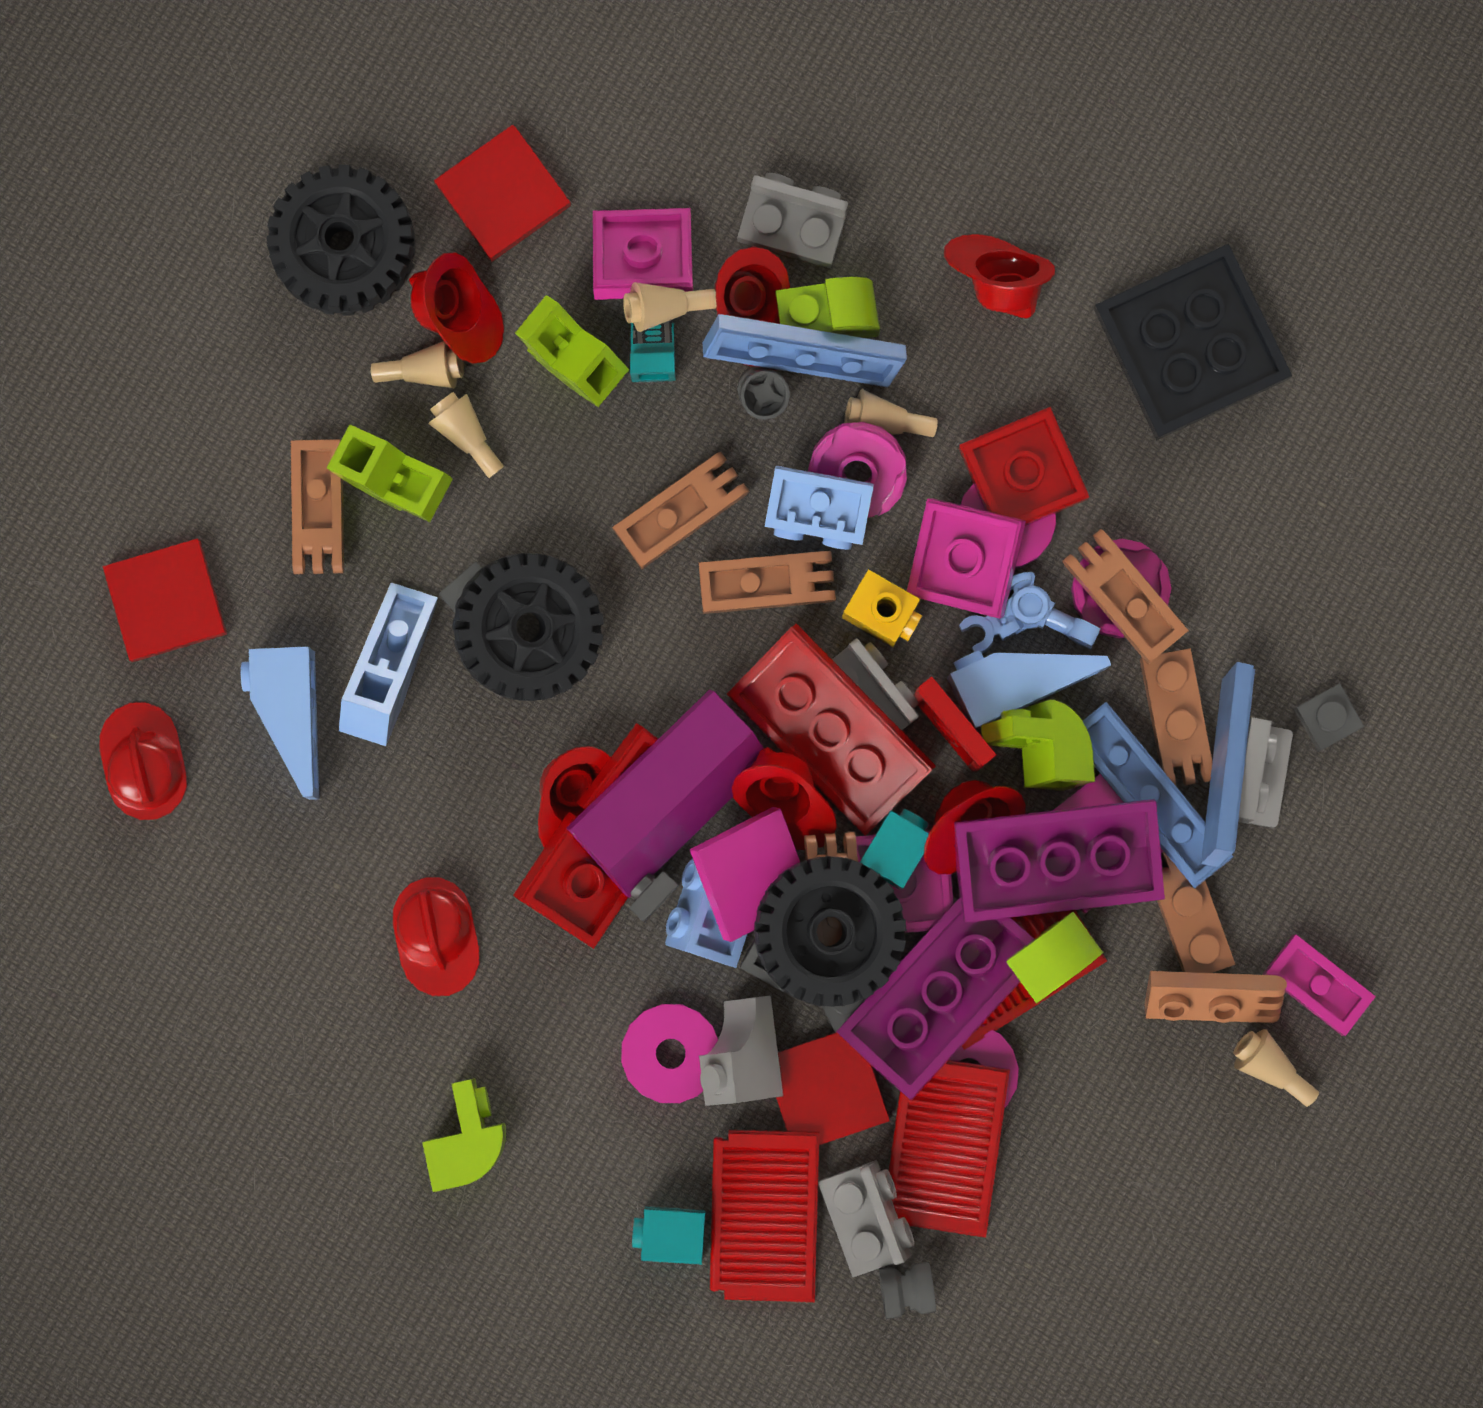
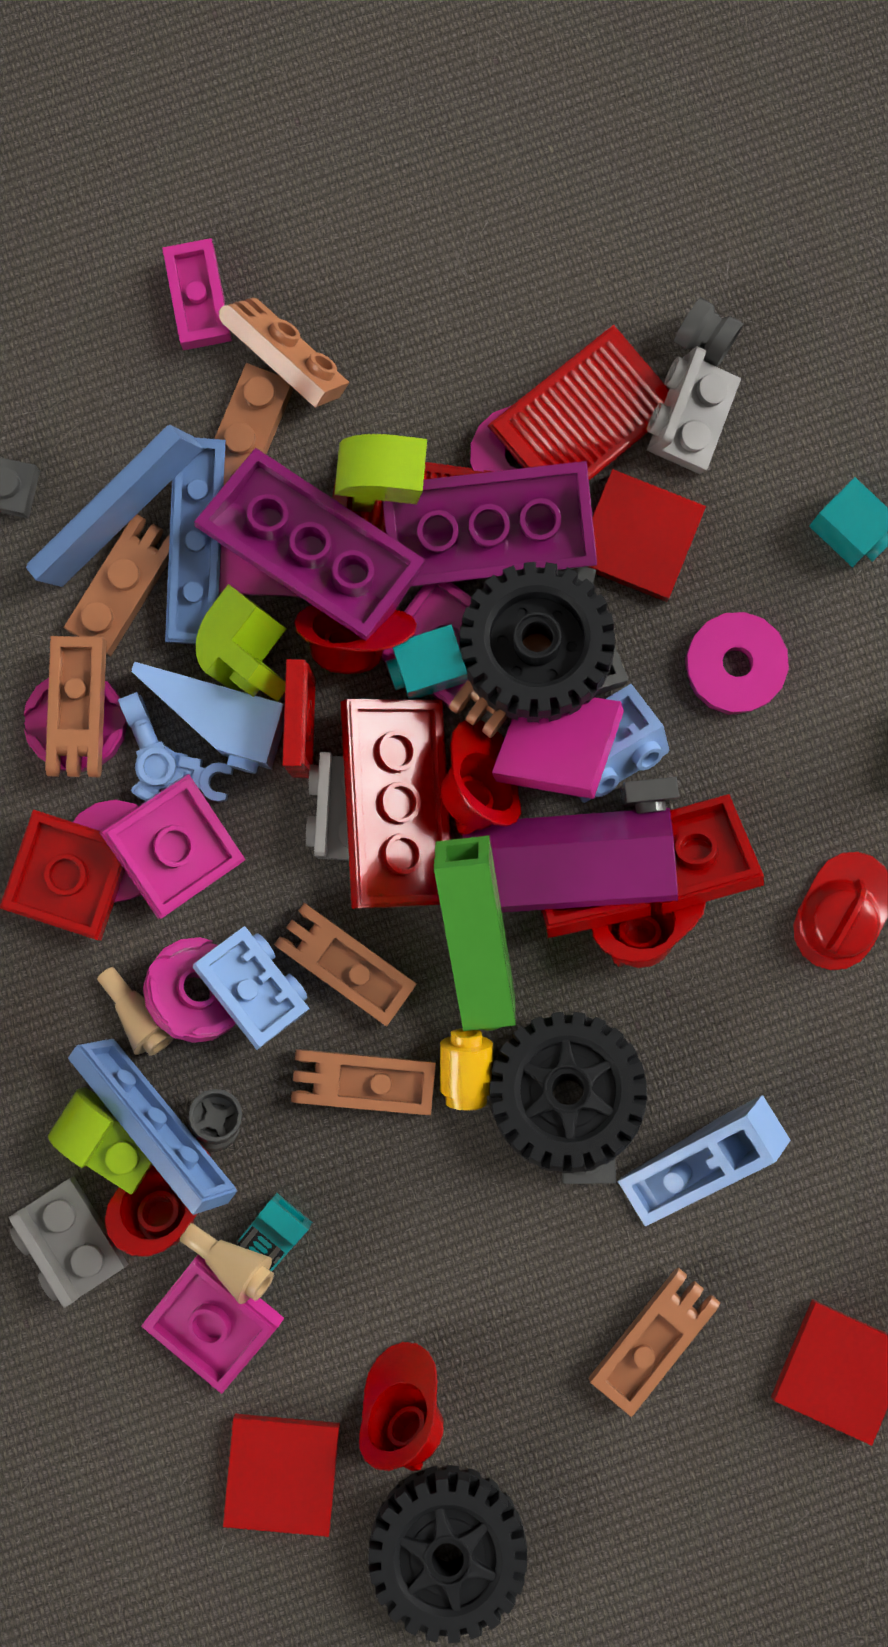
camera: 135 degrees left, 0 degrees up
(285, 699) = (816, 1196): light blue slope -> none
(389, 474) = (575, 1318): lime brick -> none
(430, 366) = (465, 1380): tan cone -> none
(460, 425) = (481, 1306): tan cone -> none
(571, 352) = (340, 1291): lime brick -> none
(615, 581) = (466, 1069): none -> yellow brick
(691, 678) = (475, 932): none -> bright green brick
(745, 1057) = (688, 604): light grey arch -> none
(764, 1215) = (768, 481): red window -> none
(875, 592) = (283, 878): yellow brick -> none
(1263, 1059) = (288, 276): tan cone -> none
(1264, 773) = (89, 480): light grey bracket -> none

